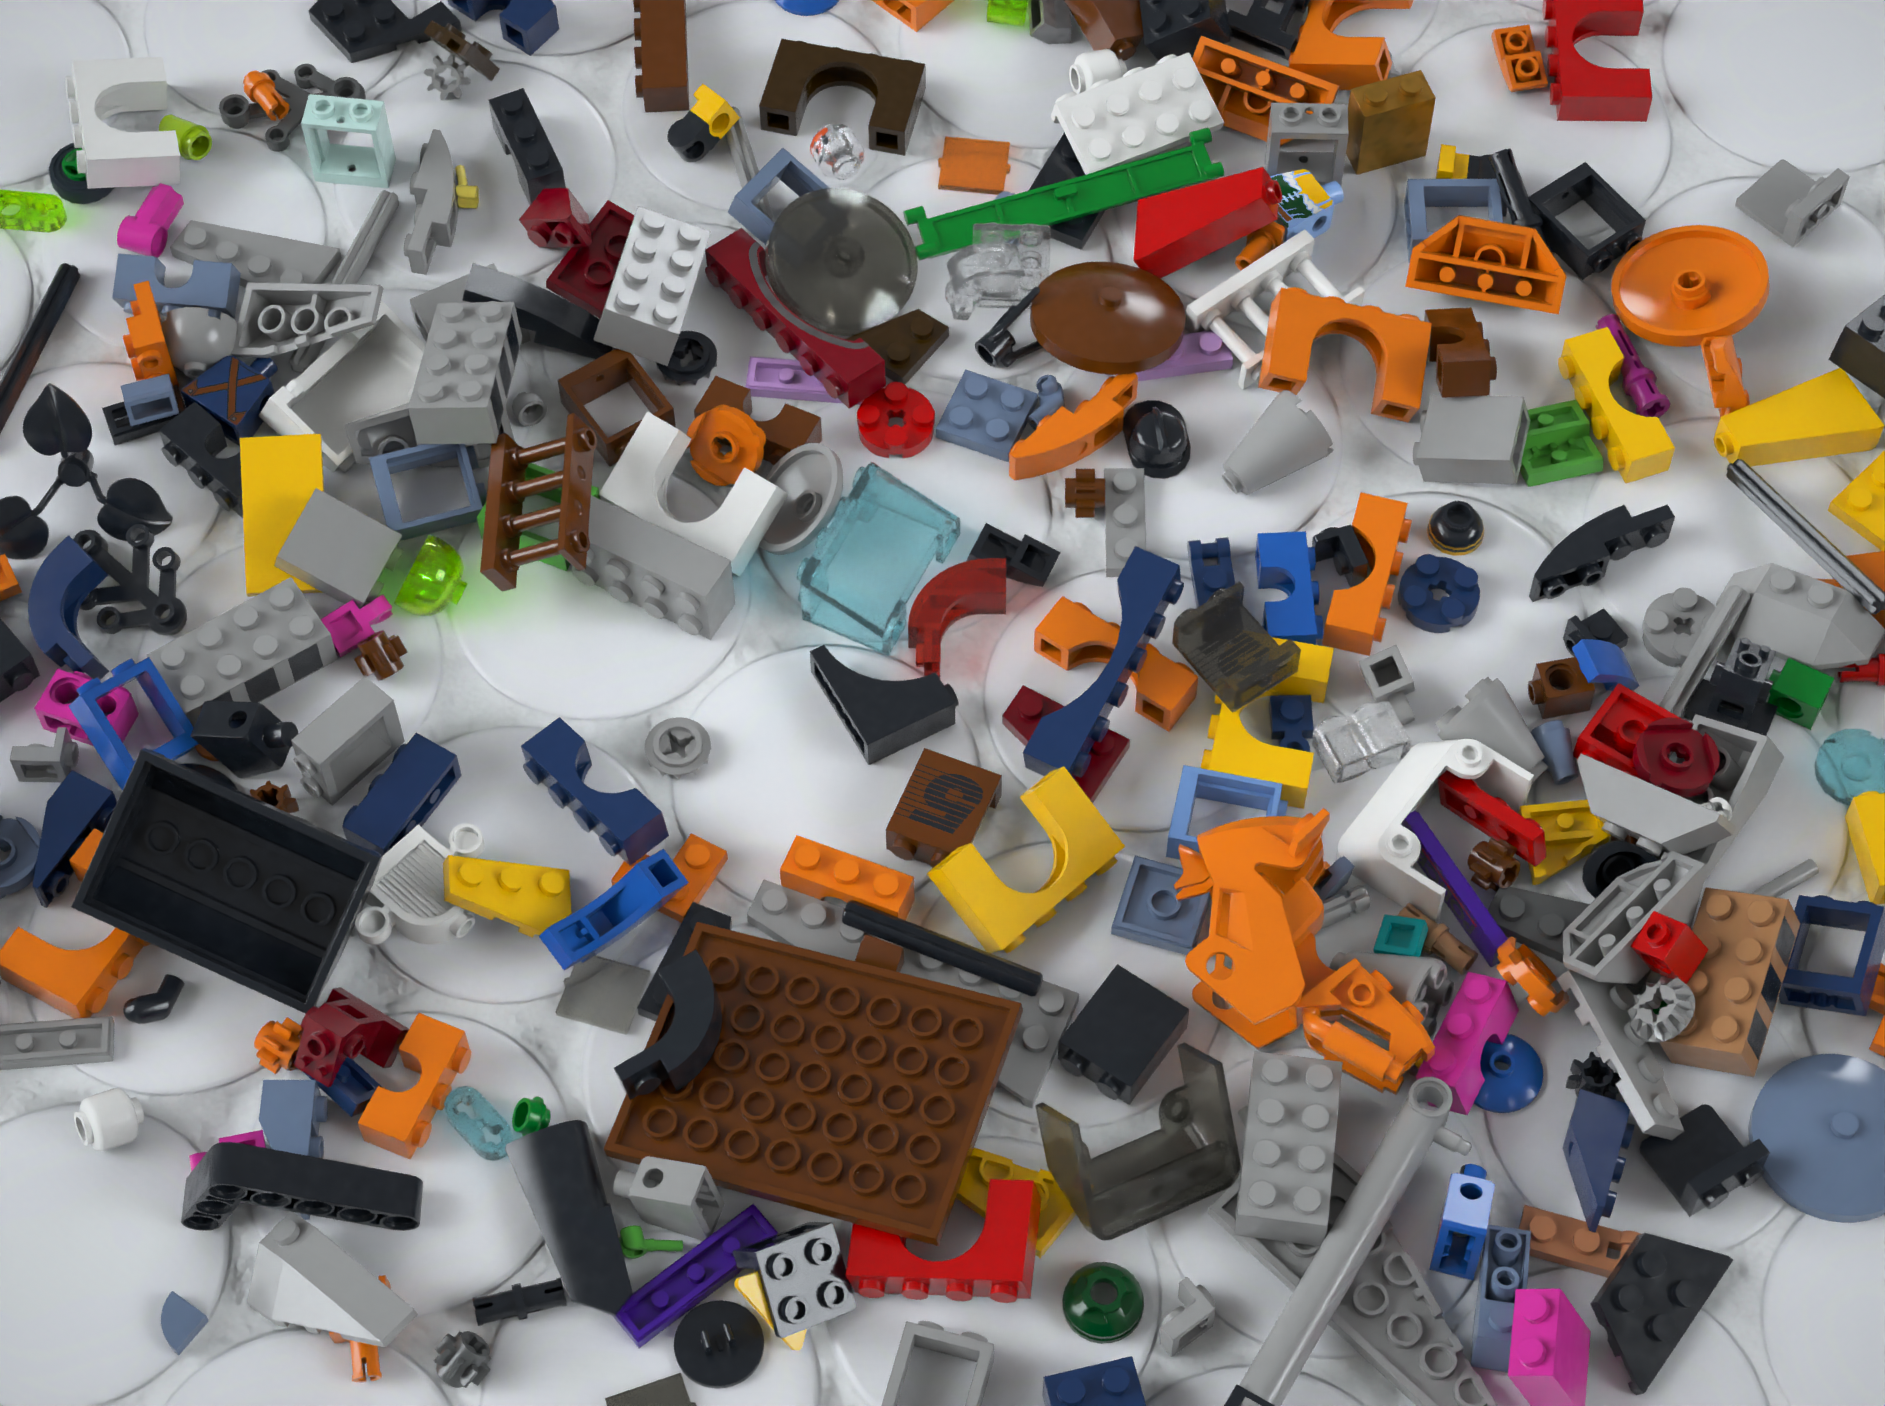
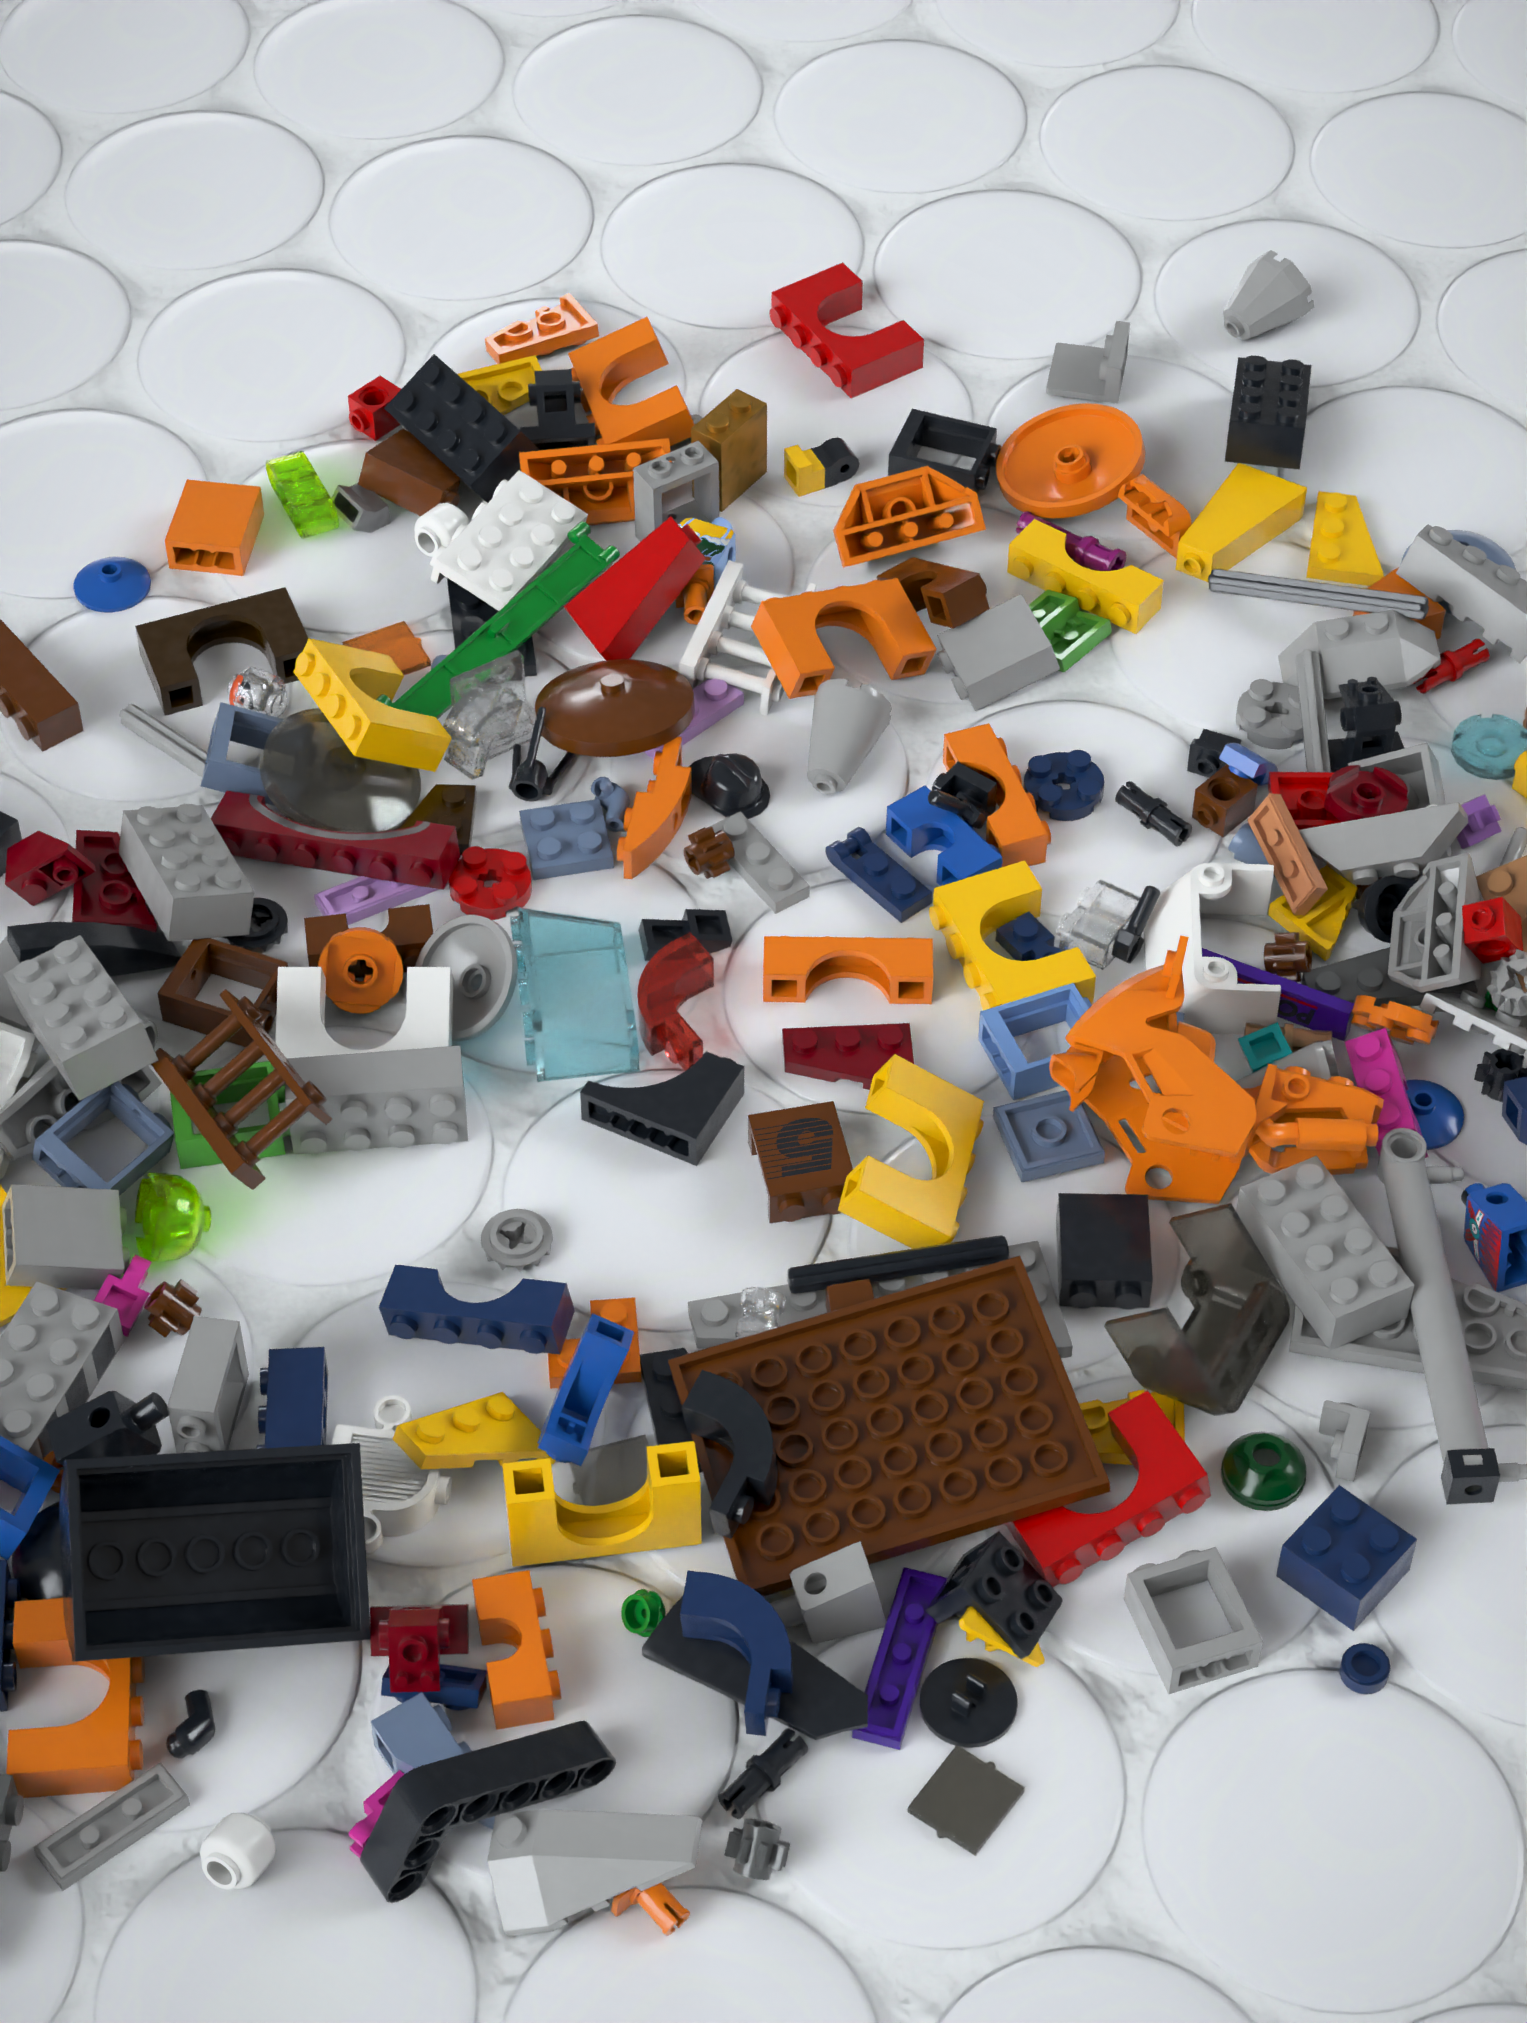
camera: 35 degrees left, 10 degrees down
(180, 1322) = (454, 1987): sand blue tile -> none
(278, 1044) = (356, 1687): orange gear -> none
(485, 1116) = (597, 1648): clear light blue beam -> none
(504, 1001) = (653, 1518): none -> yellow arch
(581, 1195) = (739, 1616): none -> dark blue arch
(635, 1245) = (835, 1659): bright green hand -> none
(702, 125) = (116, 729): leg -> none
(798, 926) = (760, 1311): none -> clear wheel
(834, 873) = (747, 1258): orange arch -> none
(878, 231) = (346, 688): none -> yellow arch
(1068, 734) = (842, 898): dark blue arch -> none
(1233, 648) = (947, 902): clear smoke panel -> none
(1325, 569) = (962, 805): none -> black bar
(1374, 771) = (1129, 940): none -> black bar
(1389, 681) = (1087, 861): light grey brick -> none
(1447, 193) = (799, 497): sand blue window -> none
(1456, 528) = (1033, 730): black piece -> none
(1492, 816) = (1260, 920): red plate -> none
(1493, 660) = (1153, 813): none -> black pin
(1495, 723) = (1192, 843): light grey cone -> none
(1514, 192) = (871, 451): black pin -> none
(1518, 59) = (781, 366): orange slope -> none
(1561, 769) = (1288, 853): none -> nougat tile
(1587, 550) = (1161, 684): black slope -> none
(1772, 830) = (1481, 821): none -> medium lavender tile
(1799, 692) = (1417, 711): green brick -> none

